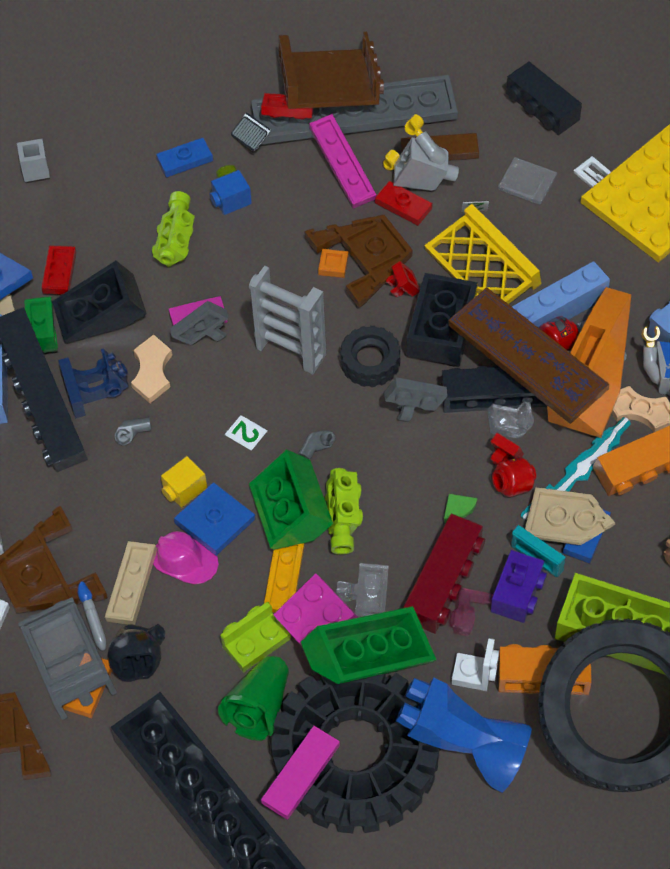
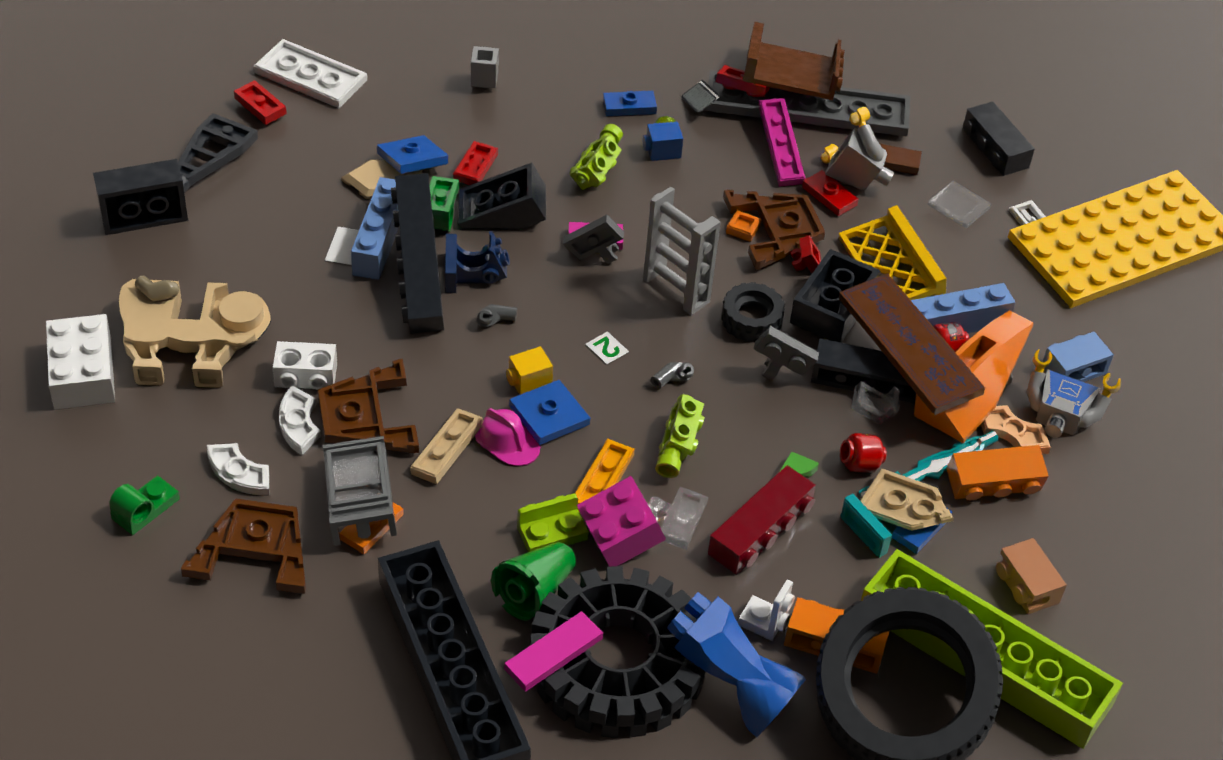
camera: 10 degrees right, 10 degrees down
(92, 616) = (397, 443): light grey piece -> none
(135, 652) = (428, 505): black piece -> none
(152, 358) = (531, 275): light nougat tile -> none
(290, 501) = (629, 413): green slope -> none
(368, 646) = (662, 552): green slope -> none
(464, 616) = (769, 563): clear pink plate -> none
(481, 206) = (905, 209): white sticker -> none
(504, 449) = (860, 424): red tile -> none
(518, 586) = (835, 551): dark purple brick -> none

